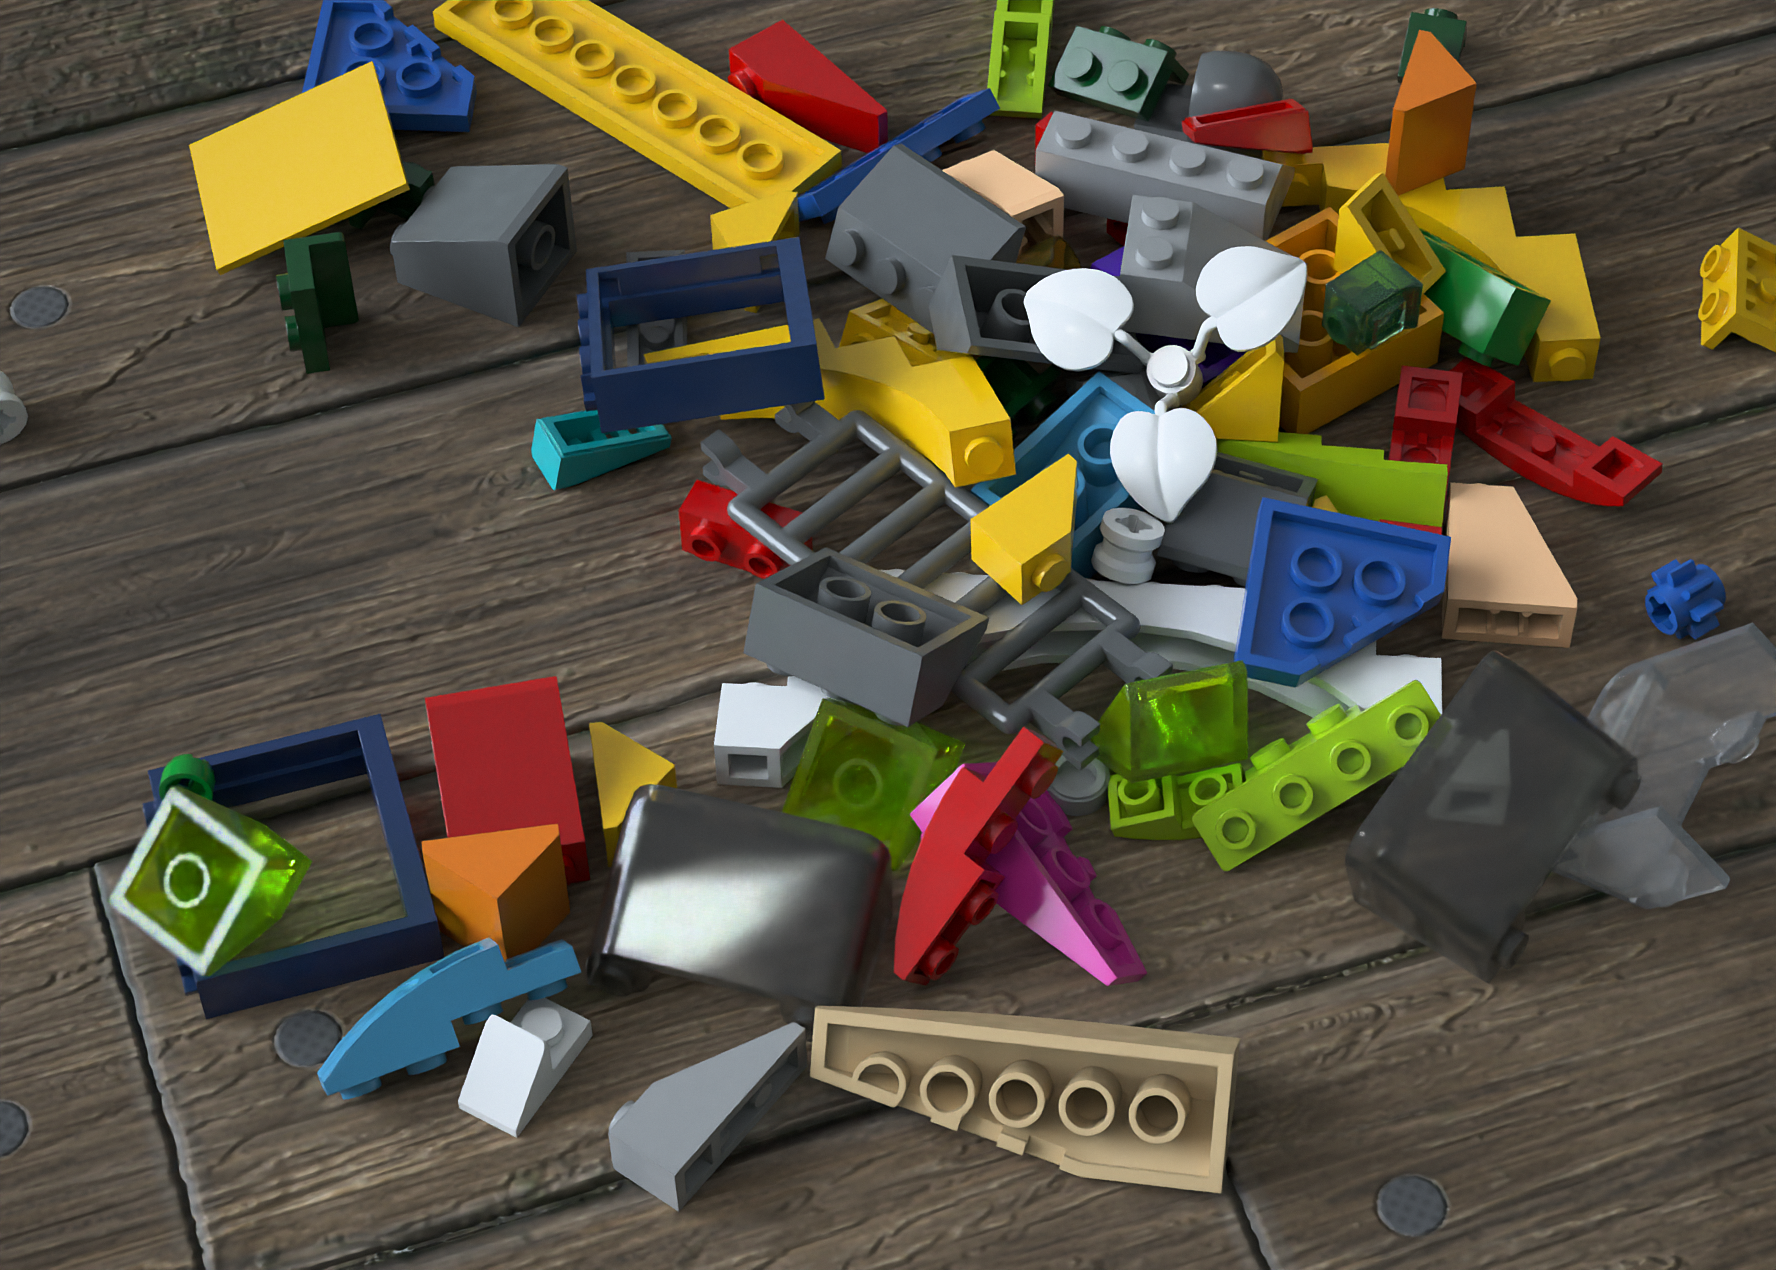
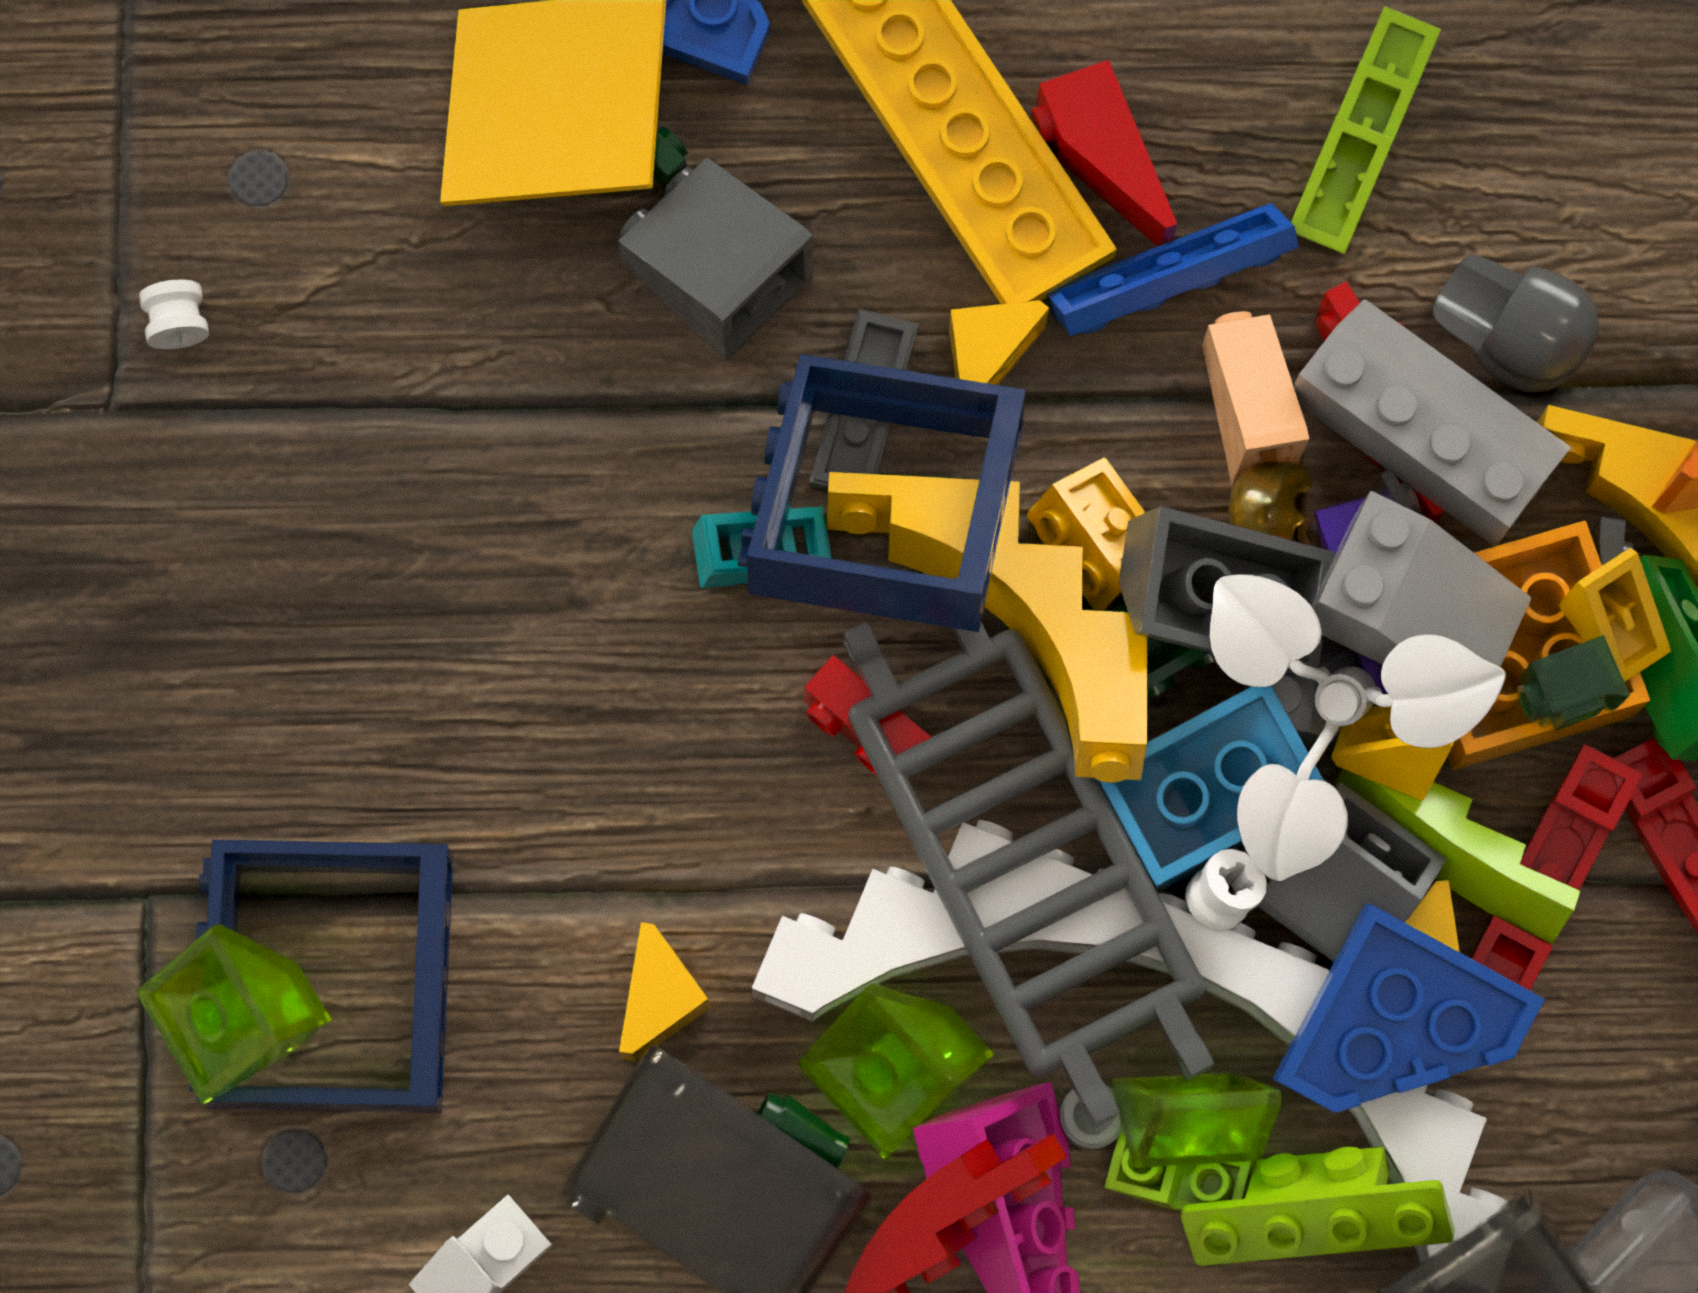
camera: 15 degrees right, 25 degrees up
(187, 767) = (243, 877): green hinge -> none
(319, 292) = (521, 274): dark green bracket -> none
(414, 1020) = (394, 1196): dark azure slope -> none
(499, 886) = (502, 1095): orange slope -> none
(507, 764) = (542, 976): red slope -> none
(862, 635) = (928, 930): dark grey slope -> none
(906, 226) = (1154, 422): dark grey slope -> none
(1029, 533) = (1129, 870): yellow slope -> none
(1116, 72) = (1438, 233): bracket -> none
(1266, 127) = (1541, 390): red slope -> none
(1502, 573) = (1592, 1009): light nougat slope -> none

